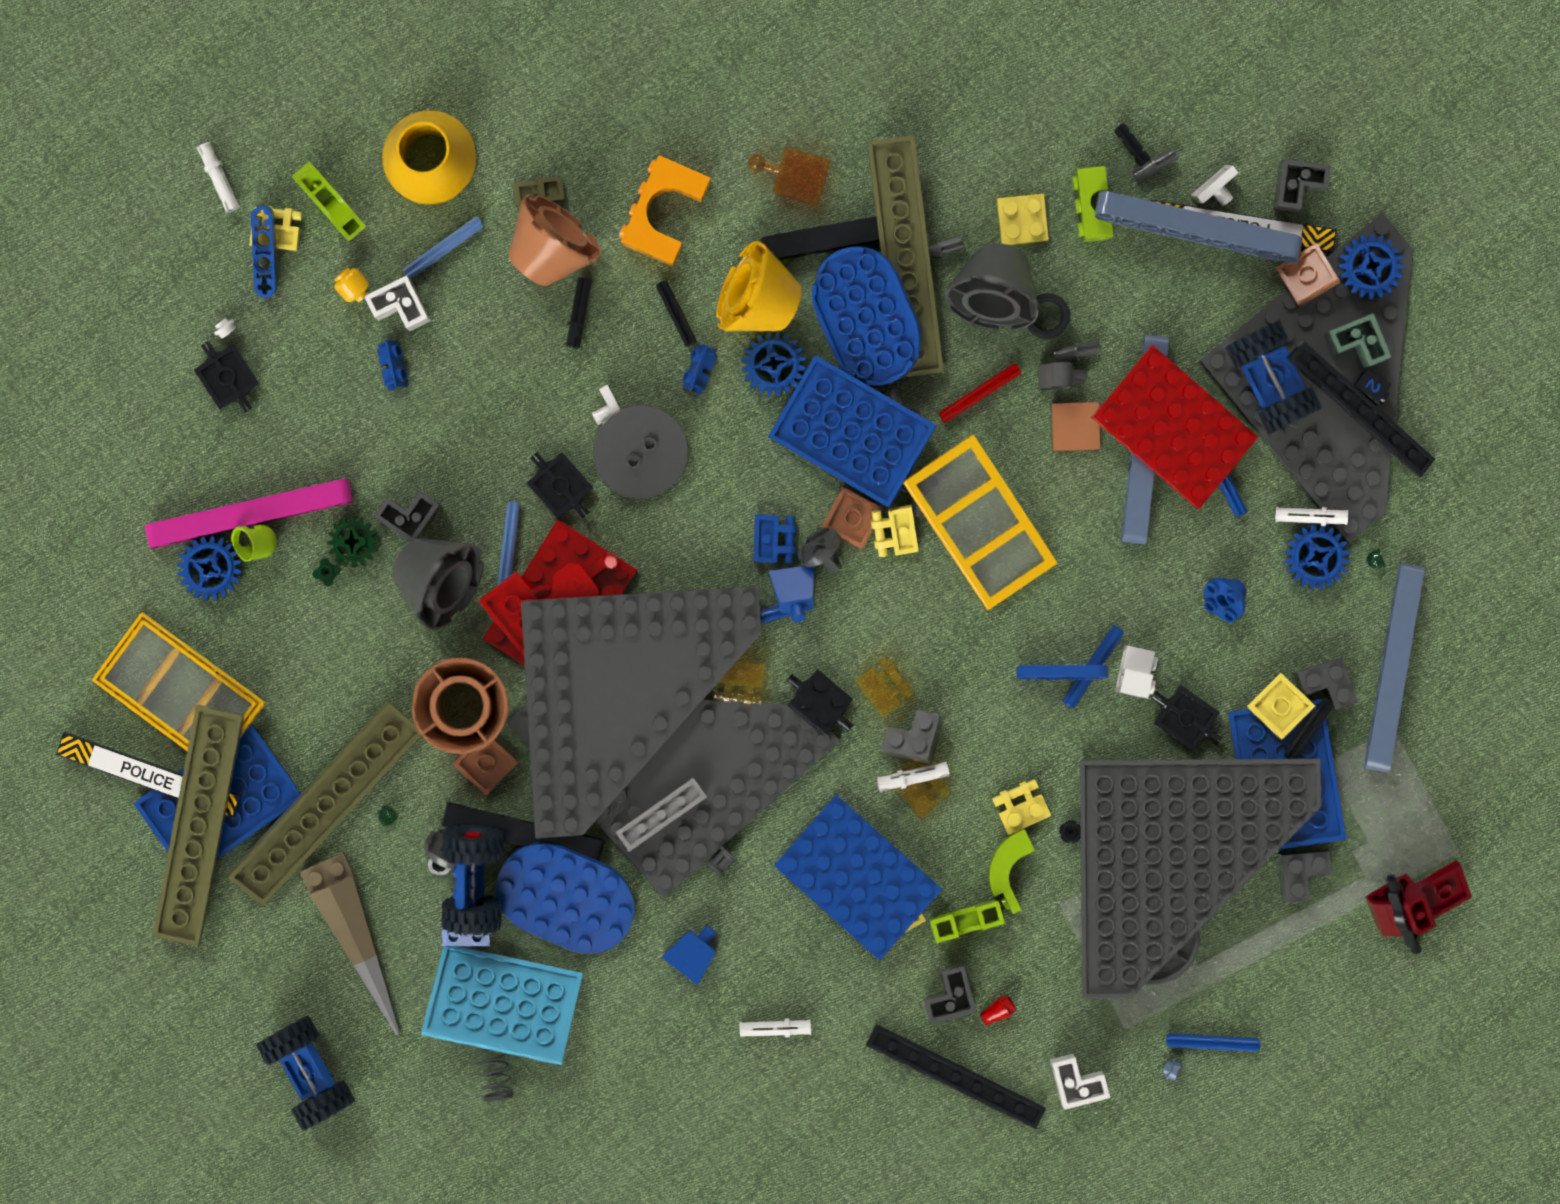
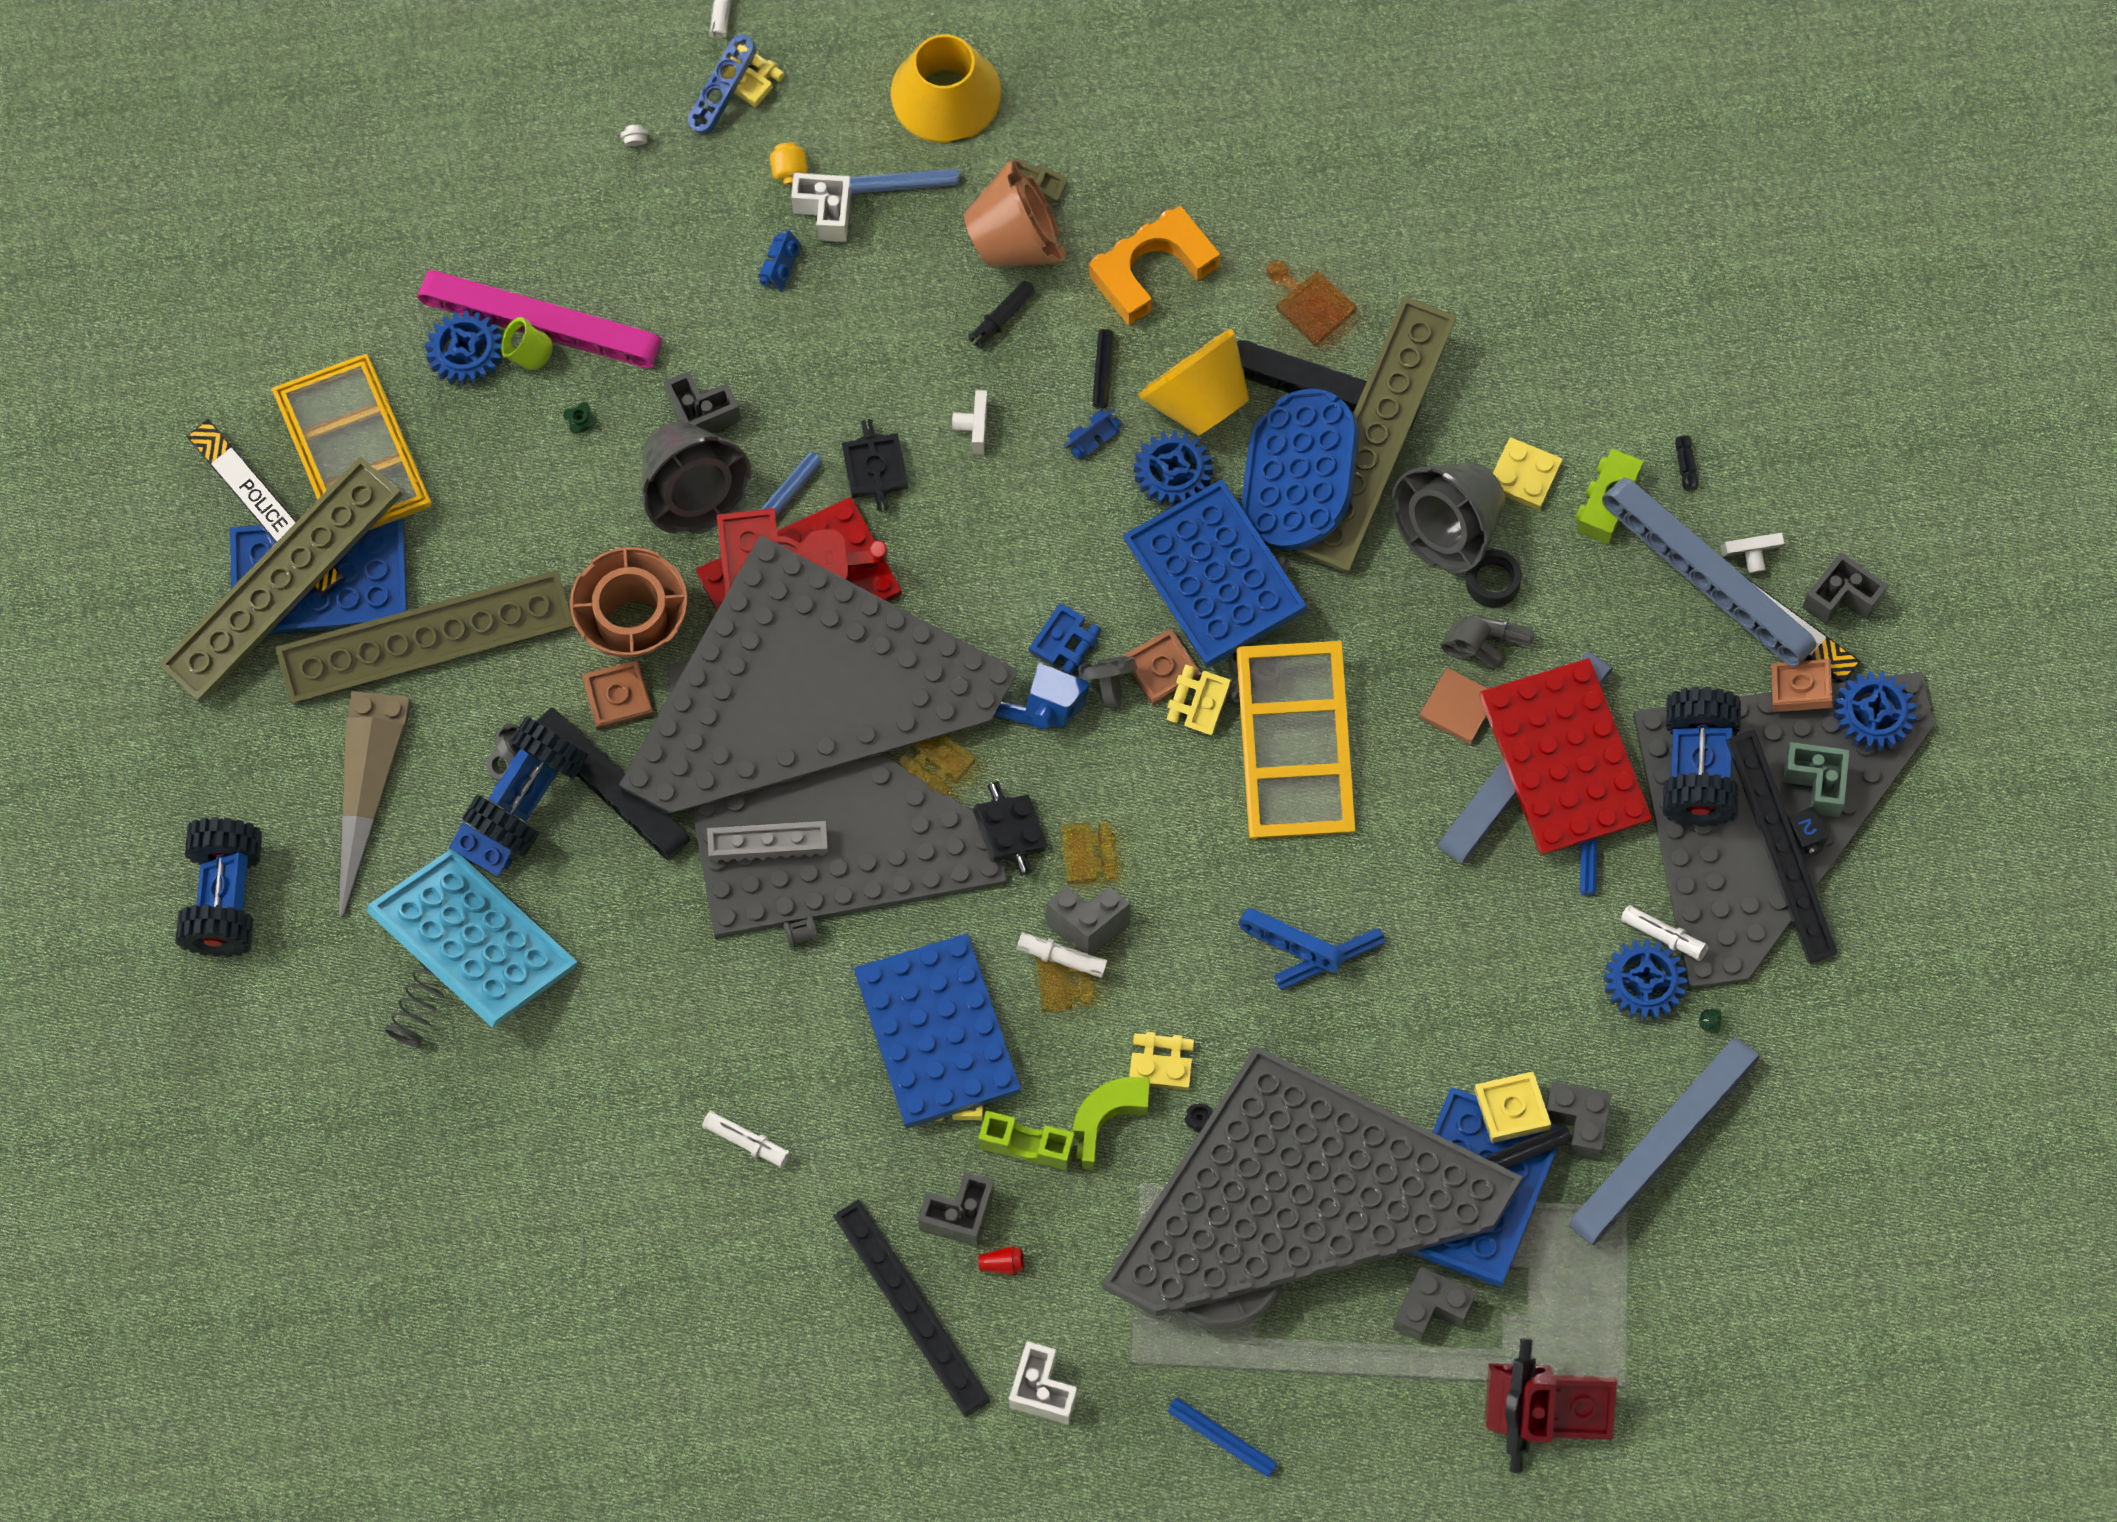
camera: 30 degrees right, 20 degrees down
(226, 376) = (605, 181): black plate -> none
(328, 201) = (817, 70): lime arch -> none
(354, 553) = (620, 395): dark green gear -> none
(387, 815) = (474, 691): clear green hinge -> none
(565, 897) = (610, 871): blue plate -> none
(640, 451) = (979, 474): dark grey plate -> none
(692, 953) = (707, 1008): blue torso -> none
(945, 247) = (1418, 453): dark grey axle -> none
(979, 393) = (1374, 616): red axle -> none
(1135, 672) = (1371, 987): white brick -> none
(1154, 165) = (1698, 494): dark grey axle -> none
(1172, 1070) = (1158, 1440): sand blue plate -> none
(1186, 718) = (1400, 1068): black plate -> none
(1225, 598) = (1517, 963): blue plate -> none

